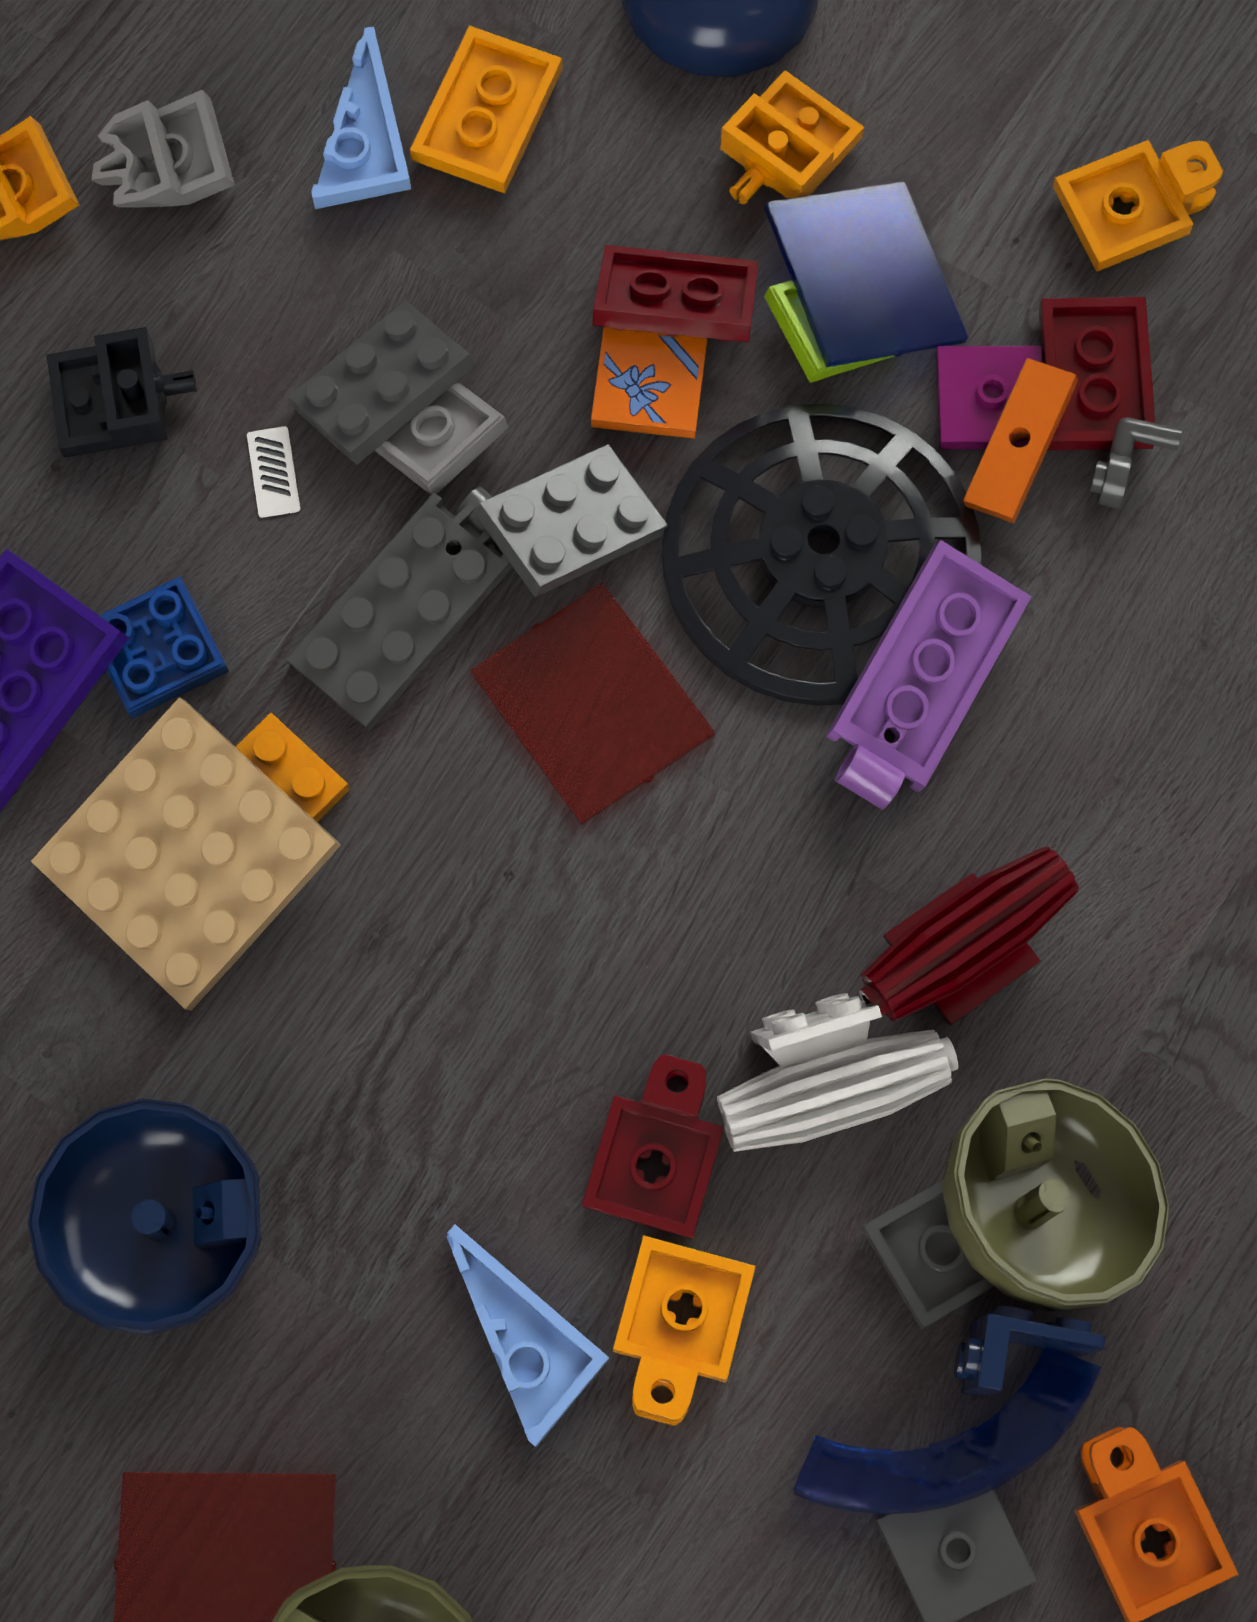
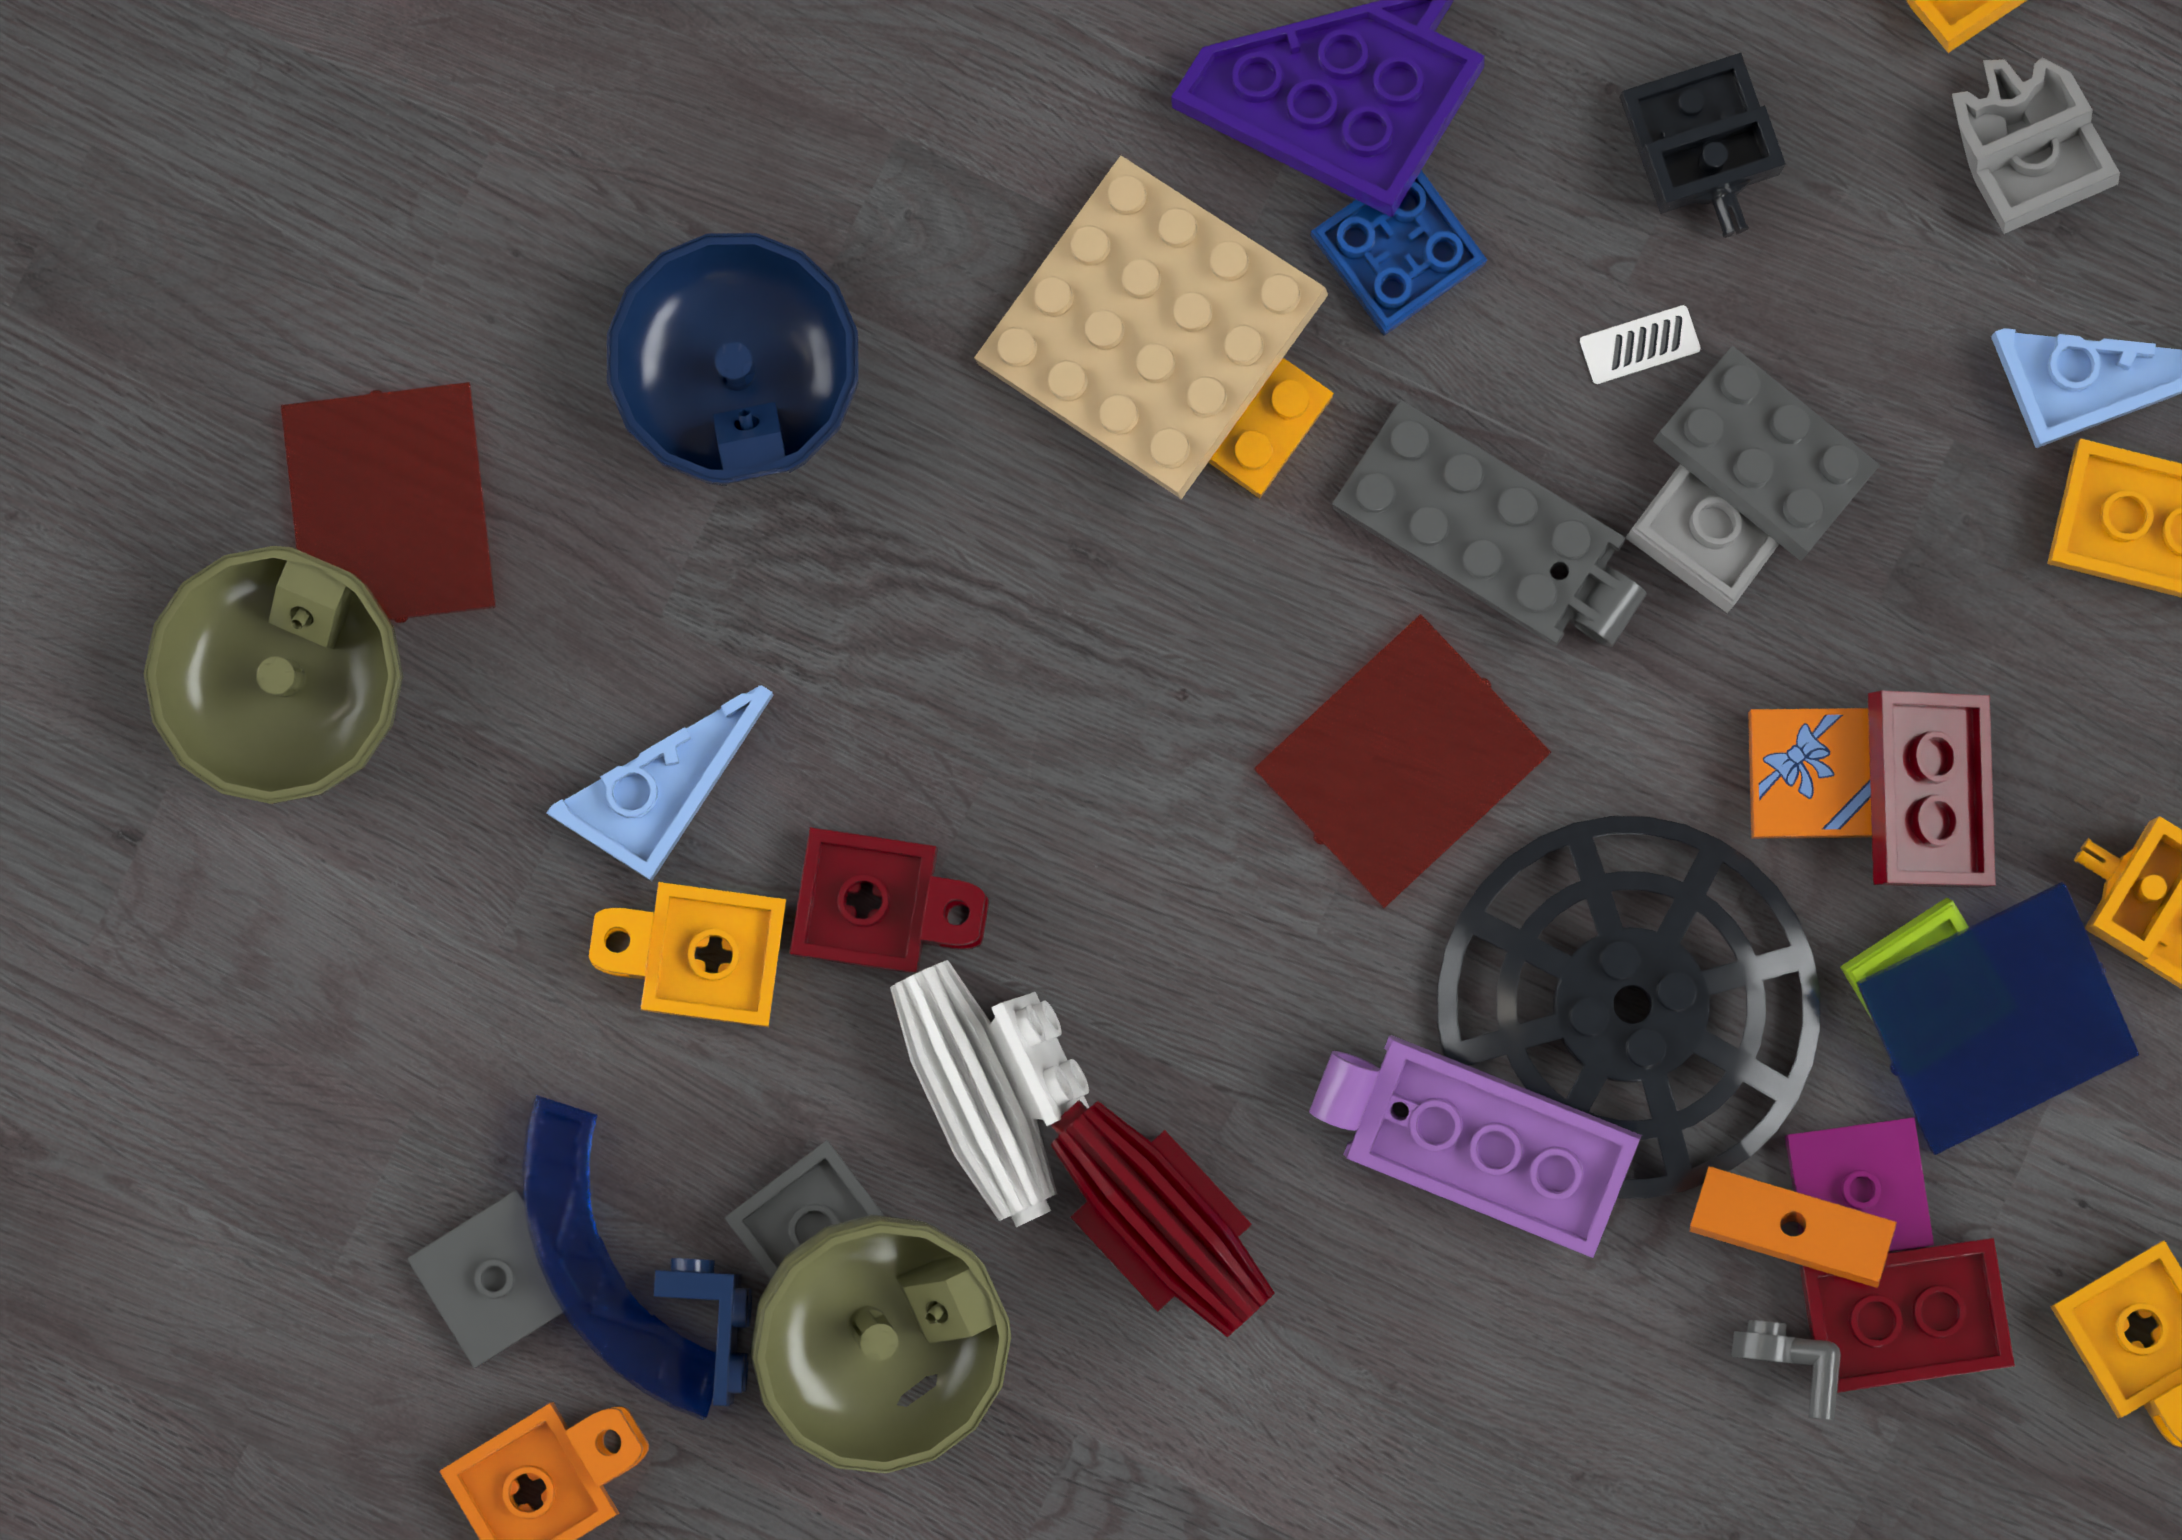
camera: 80 degrees right, 10 degrees up
(571, 520) = (1617, 704): plate -> none

